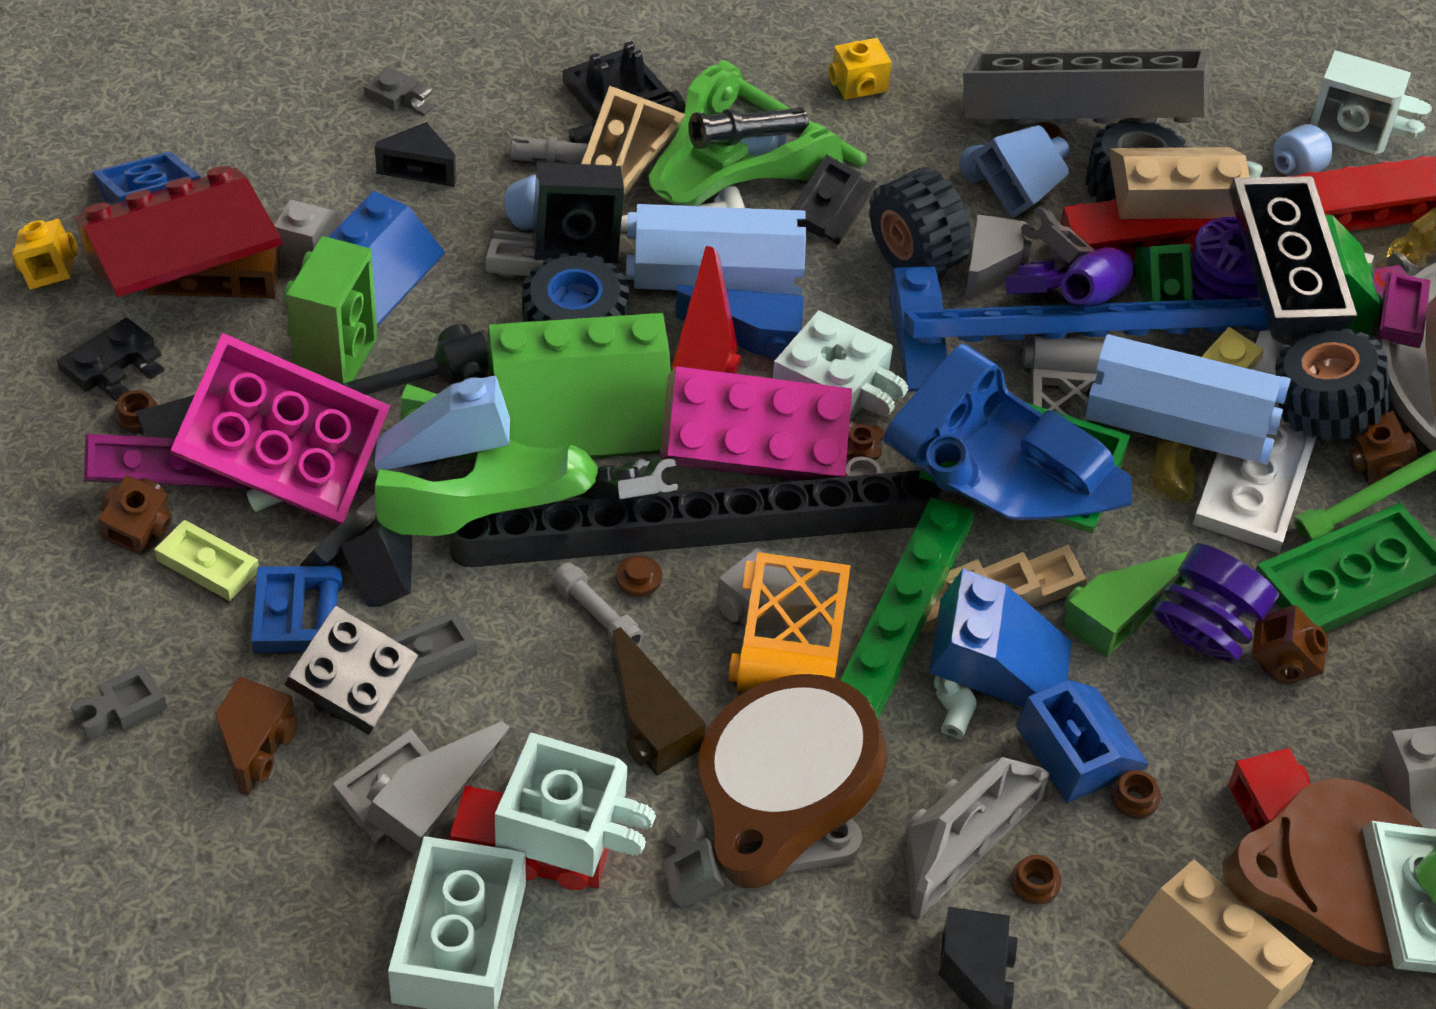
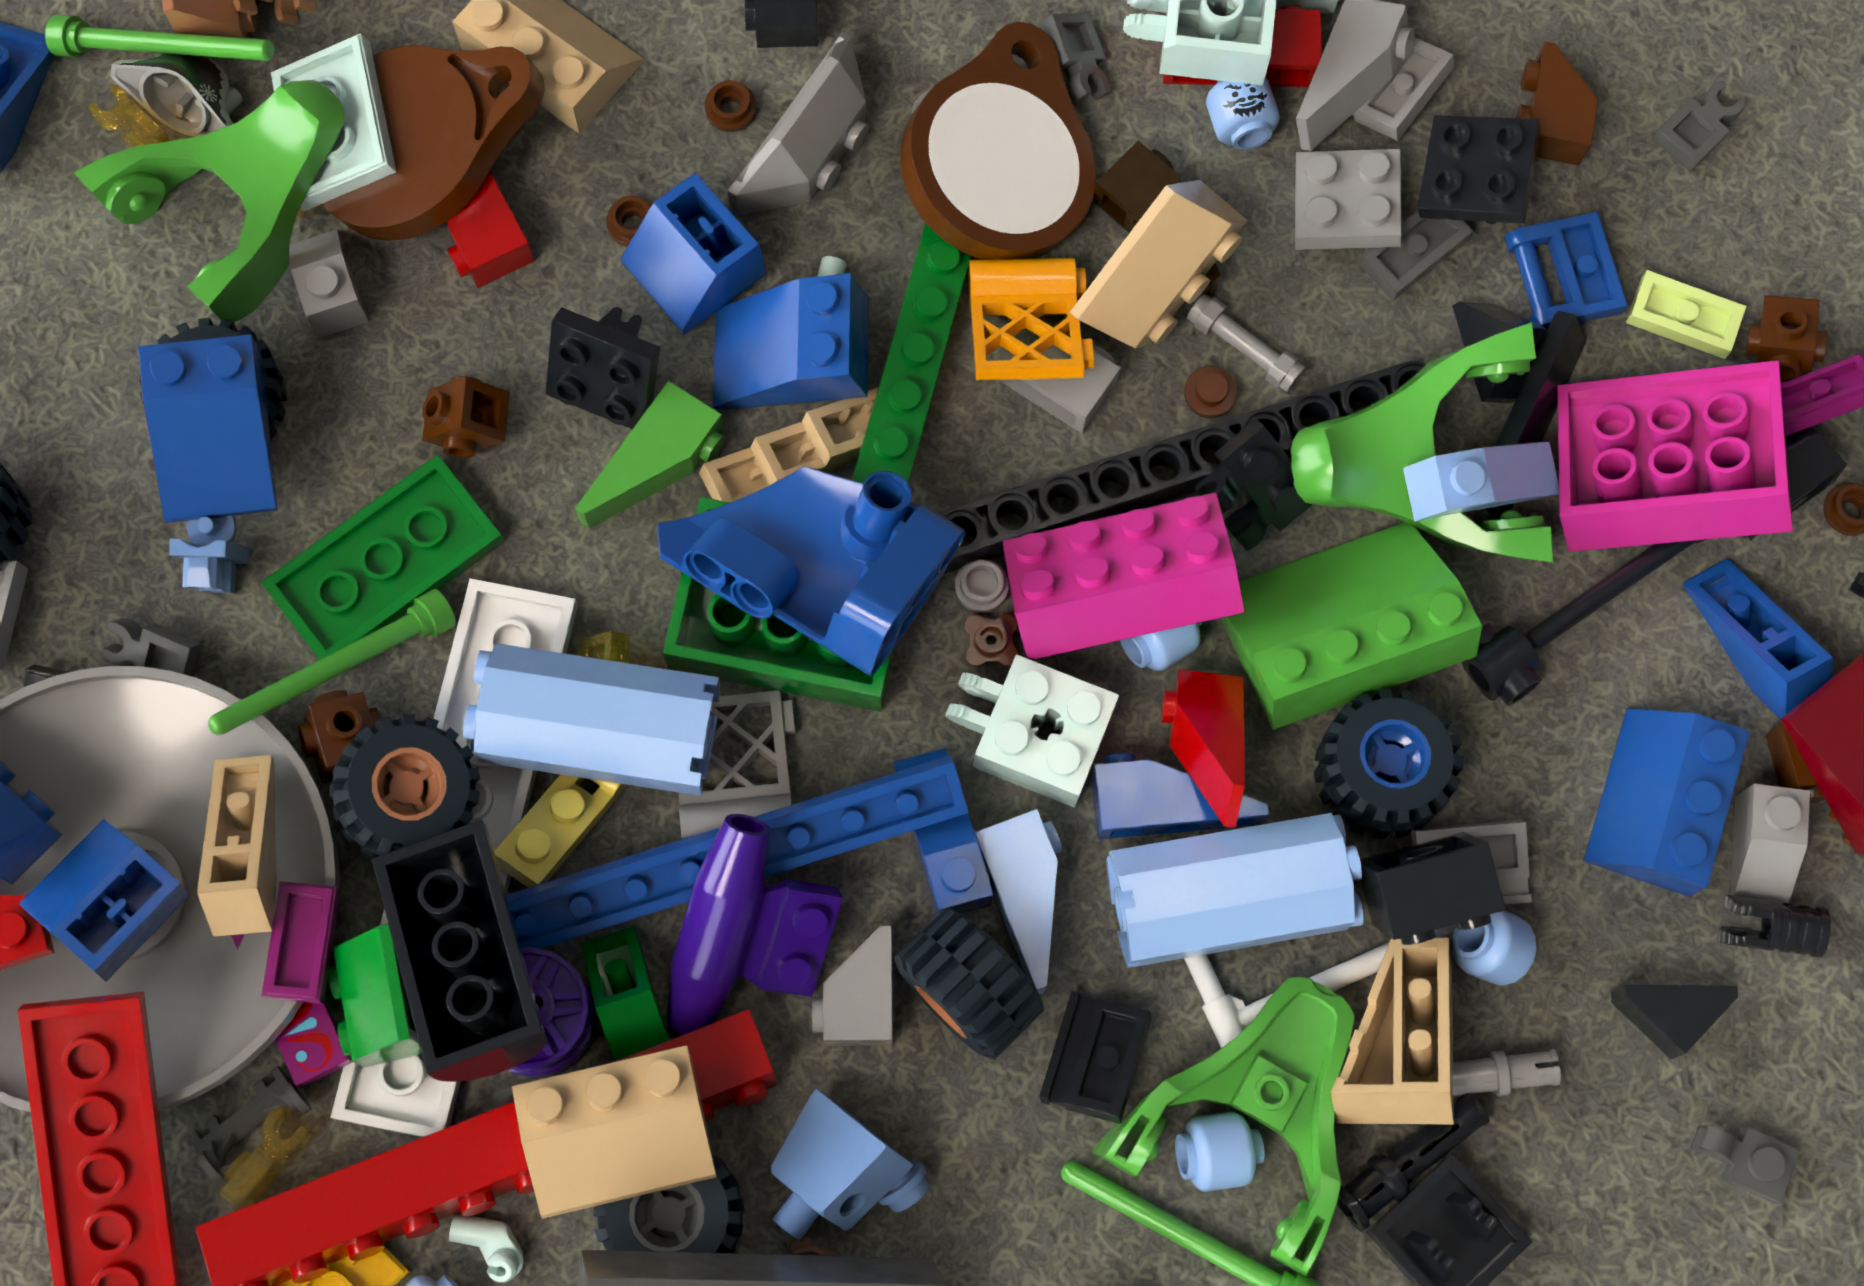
camera: 170 degrees right, 25 degrees up
(252, 312) = (1762, 641): none -> blue slope
(323, 188) = (1782, 928): none -> black hinge
(332, 310) = (1679, 626): bright green brick -> none
(471, 688) = (1348, 199): none -> light grey plate
(668, 628) = (1161, 264): none -> tan slope
(733, 127) = (1262, 1091): black pin -> none
(866, 290) = (1023, 881): none -> light blue slope
(1063, 241) = (766, 994): dark grey plate -> none
(1168, 654) = (602, 365): none -> black plate
(1218, 596) = (554, 425): dark purple wheel -> none

